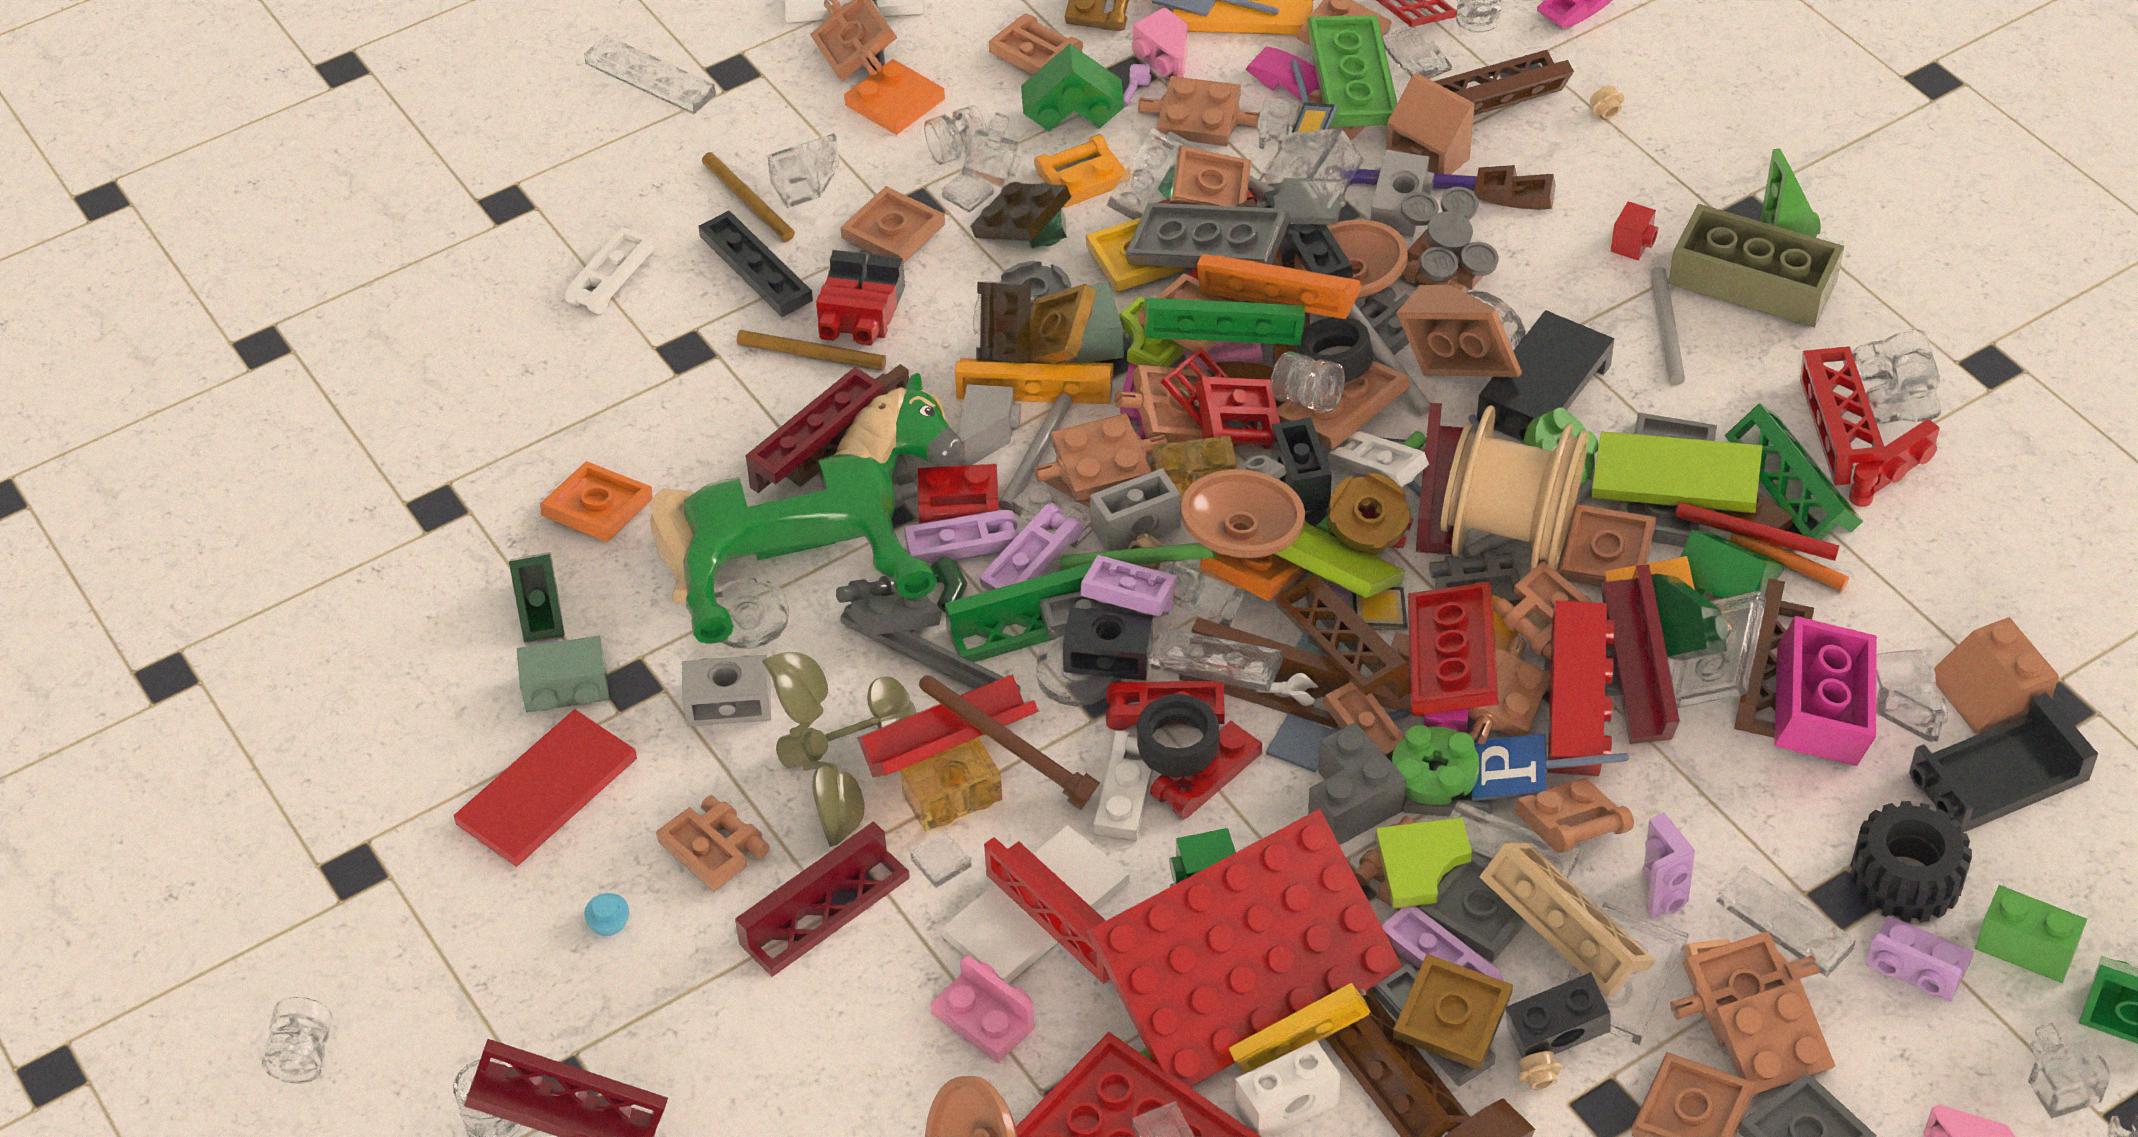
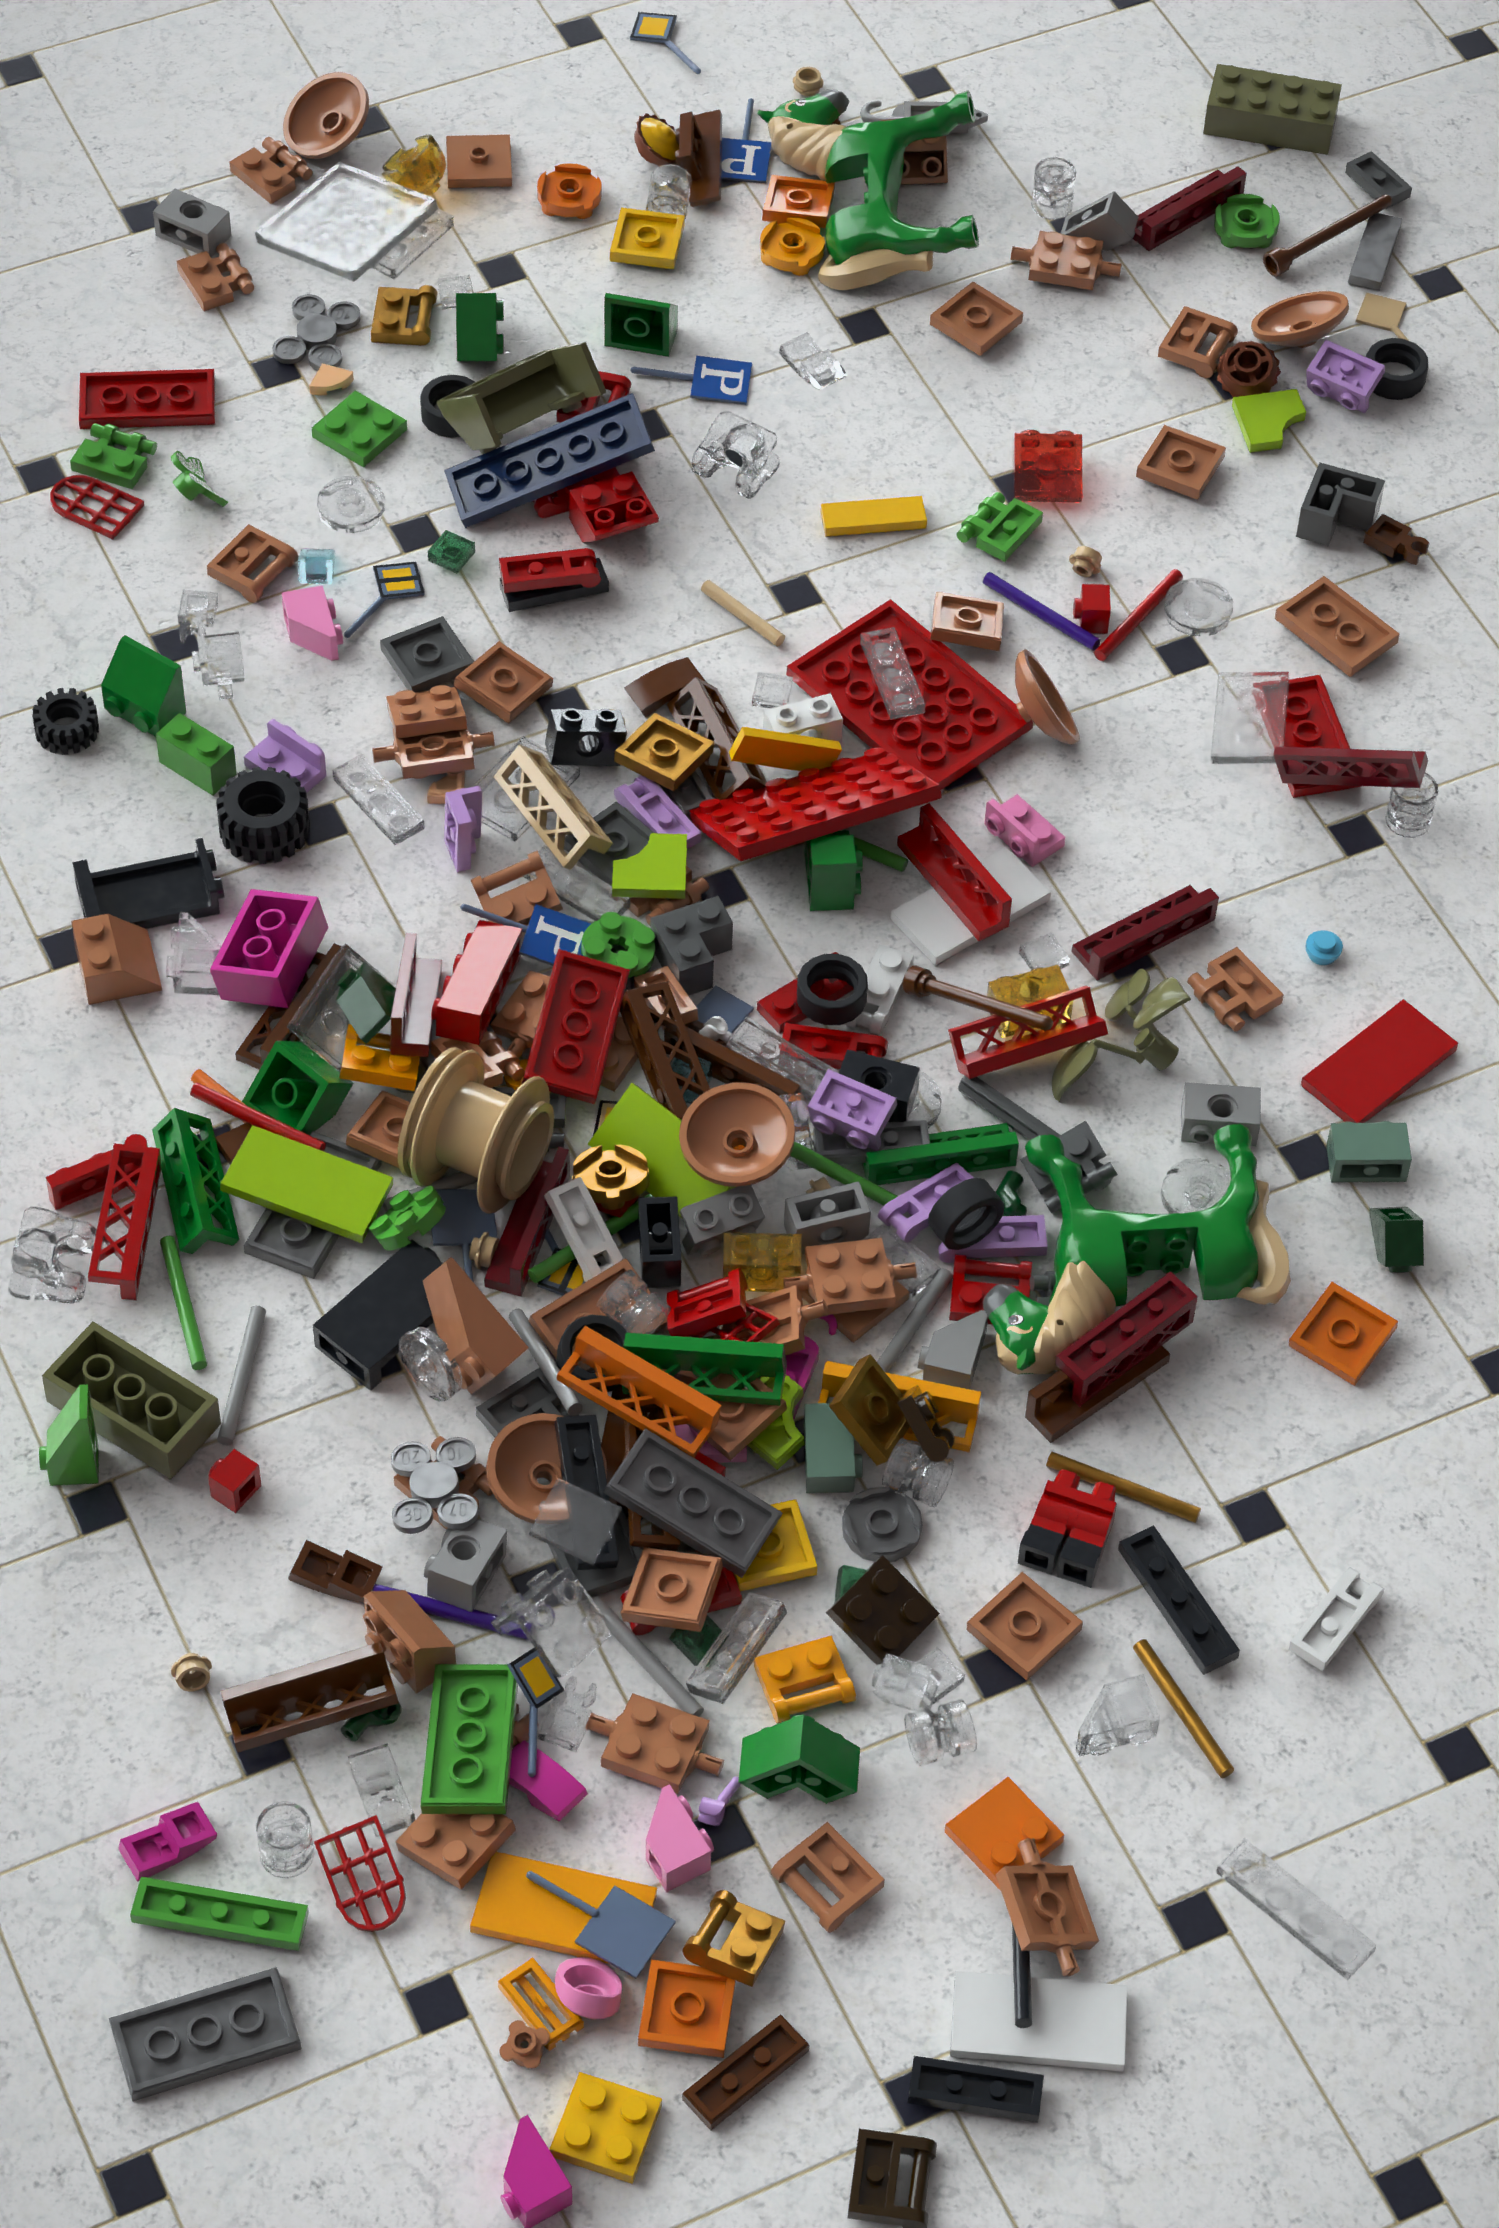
camera: 175 degrees left, 5 degrees up
(978, 488) = (966, 1213): none -> black tyre
(1753, 376) = (183, 1303): none -> bright green bar

